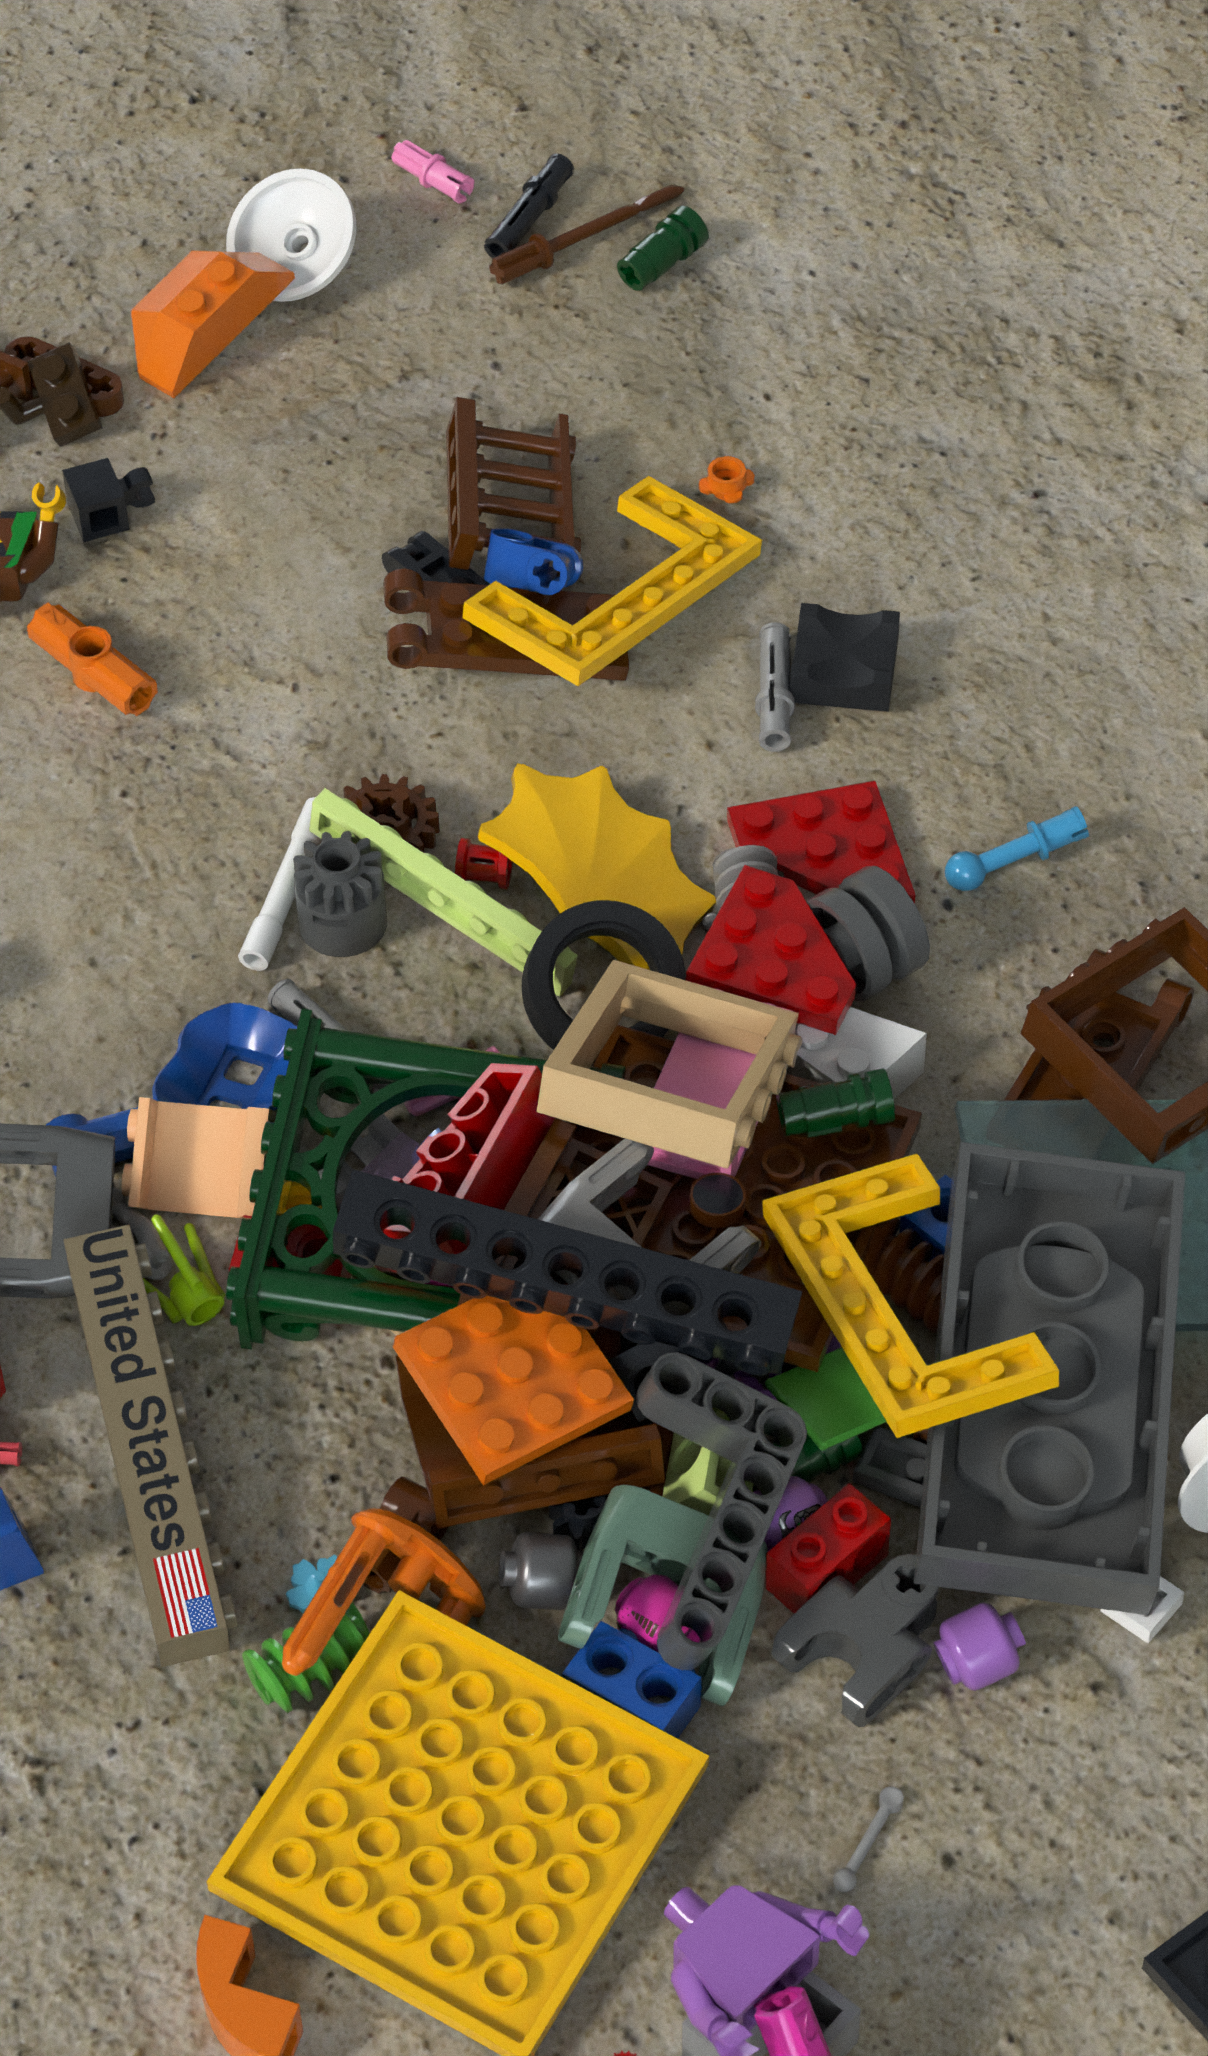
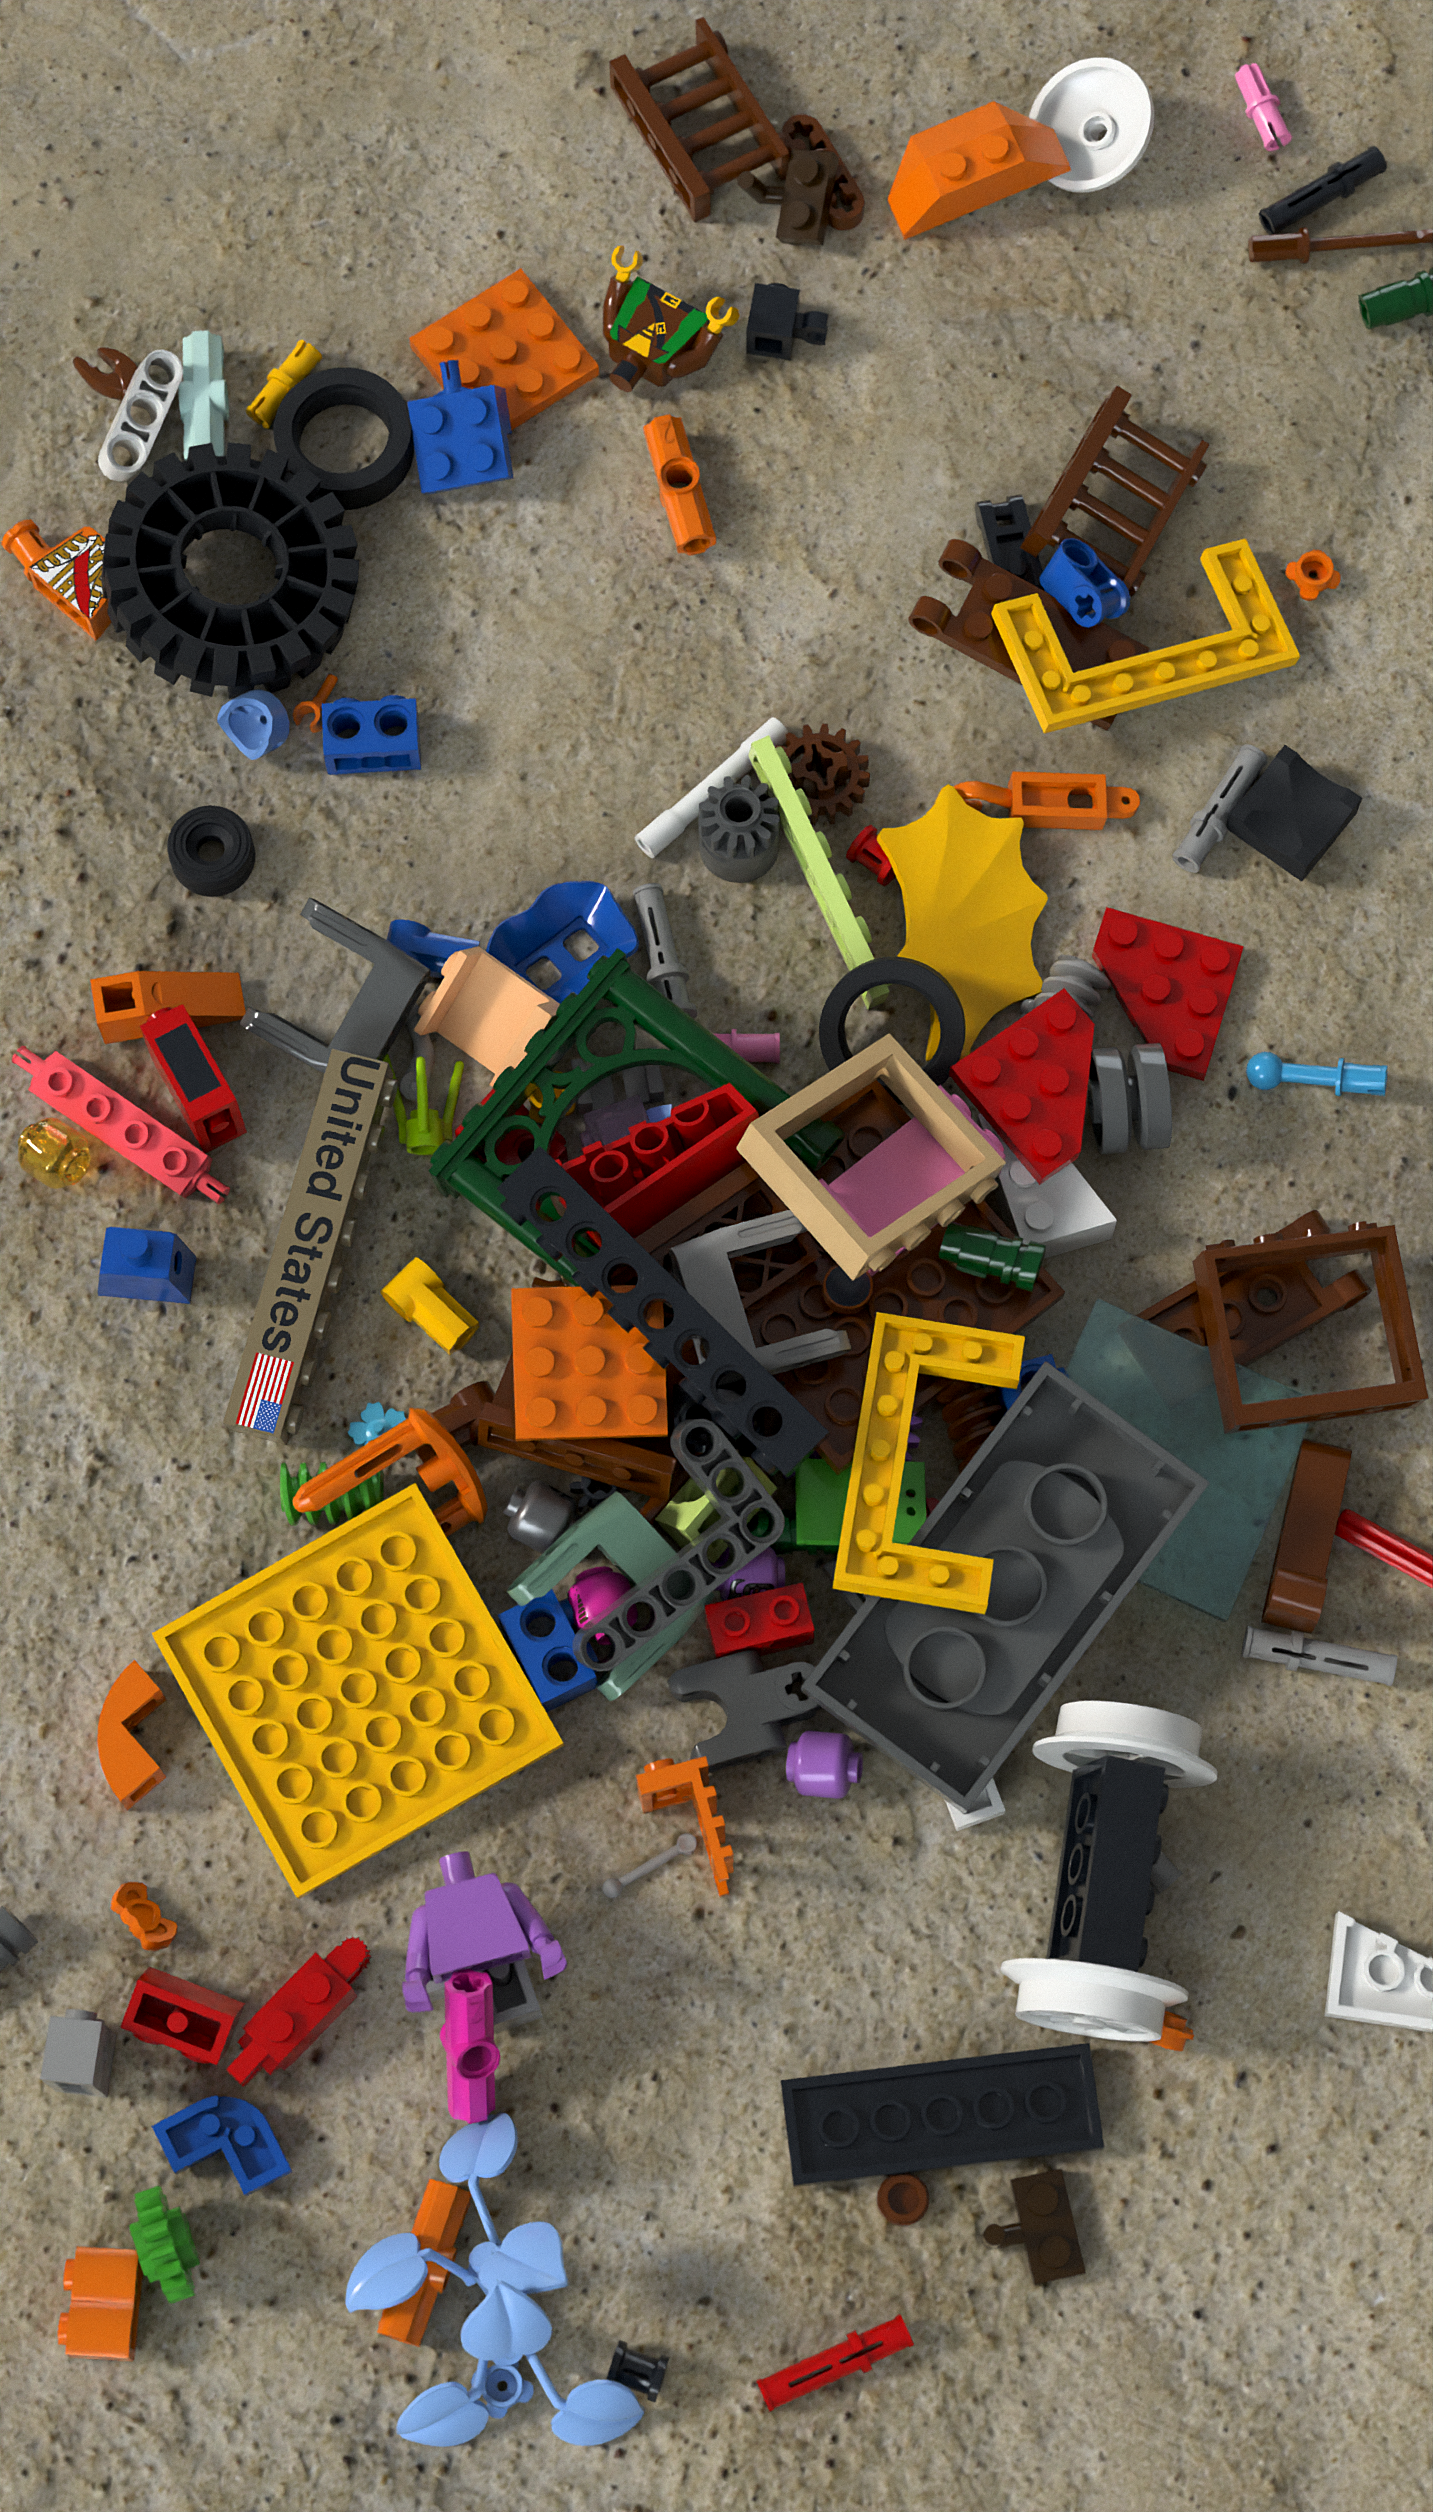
camera: 30 degrees right, 20 degrees up
(287, 1439) = (420, 1296): none -> yellow piece
(612, 746) = (1043, 796): none -> orange piece
(872, 1728) = (672, 1784): none -> orange plate

